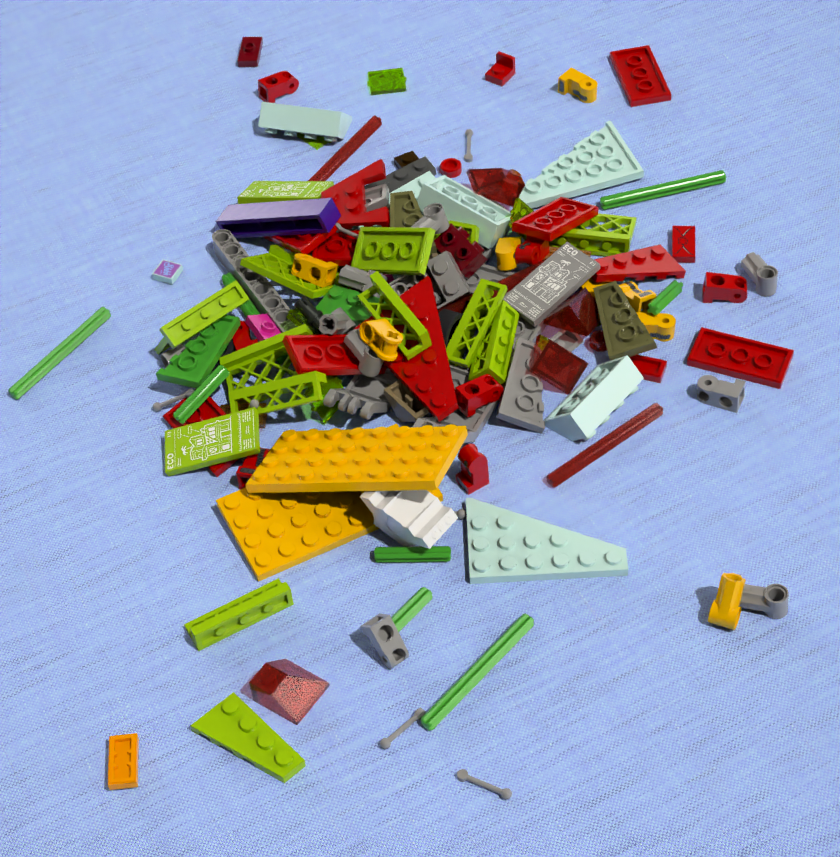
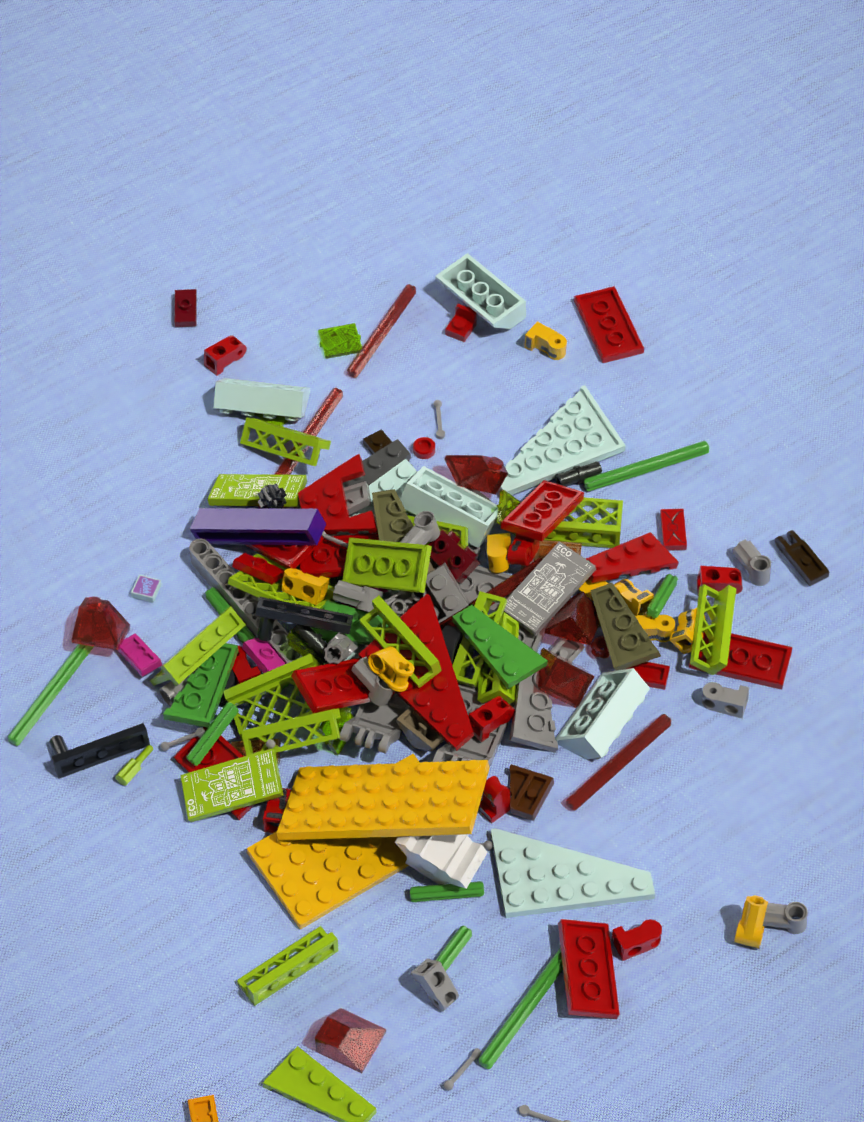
camera: 10 degrees left, 5 degrees up
(90, 406) = (98, 751): none -> black piece
(114, 296) = (99, 624): none -> clear red slope
(121, 423) = (132, 767): none -> lime axle
(146, 325) = (139, 655): none -> dark pink plate
(271, 254) = (258, 568): none -> red plate
(276, 284) = (272, 610): none -> black piece
(294, 188) = (272, 497): none -> black gear
(316, 149) = (286, 433): none -> lime fence
(425, 74) = (381, 331): none -> clear red axle
(493, 329) = (499, 648): none -> bright green wing
(509, 466) = (528, 791): none -> reddish brown wing
(525, 43) = (483, 292): none -> light aqua slope
(548, 638) = (588, 969): none -> red tile
(595, 193) = (578, 474): none -> pearl dark grey pin
(604, 612) = (637, 940): none -> red leg
(690, 329) = (685, 631): none -> yellow leg
(717, 332) = (718, 632): none -> lime fence
(810, 273) = (802, 558): none -> dark brown hinge

